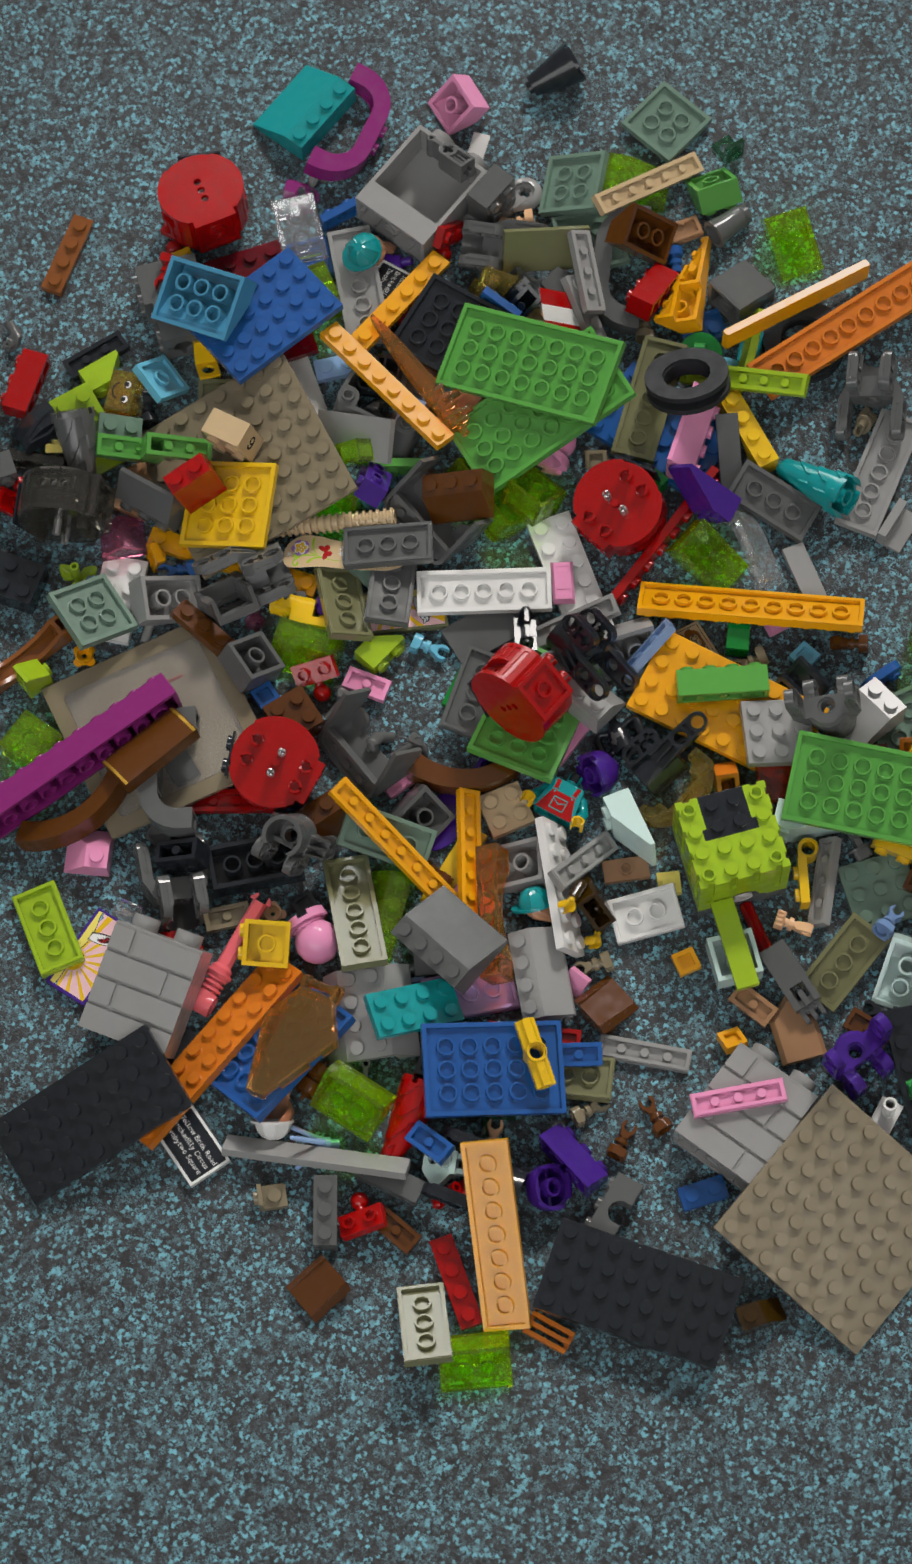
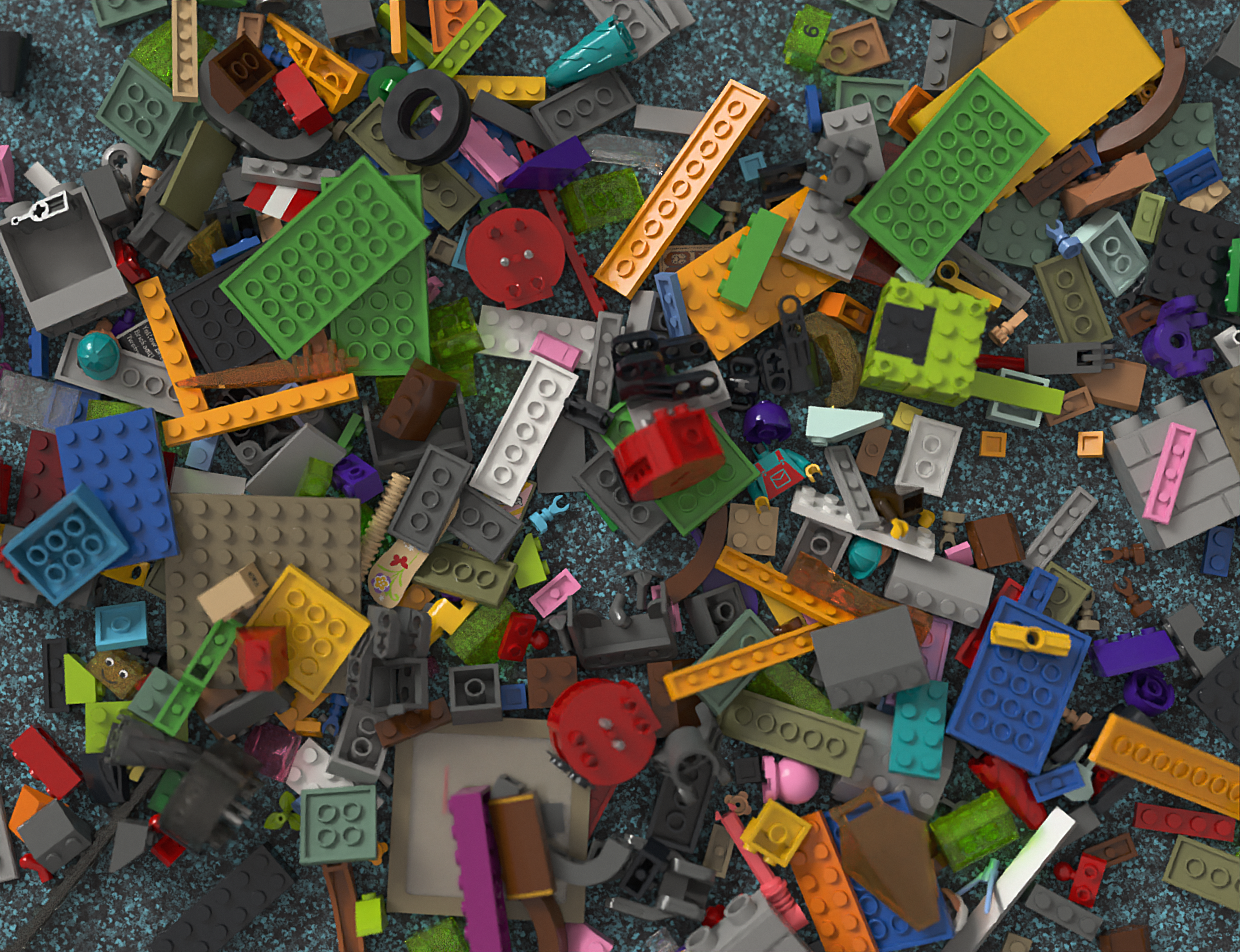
camera: 65 degrees left, 15 degrees up
(586, 272) = (249, 149): light grey plate -> none

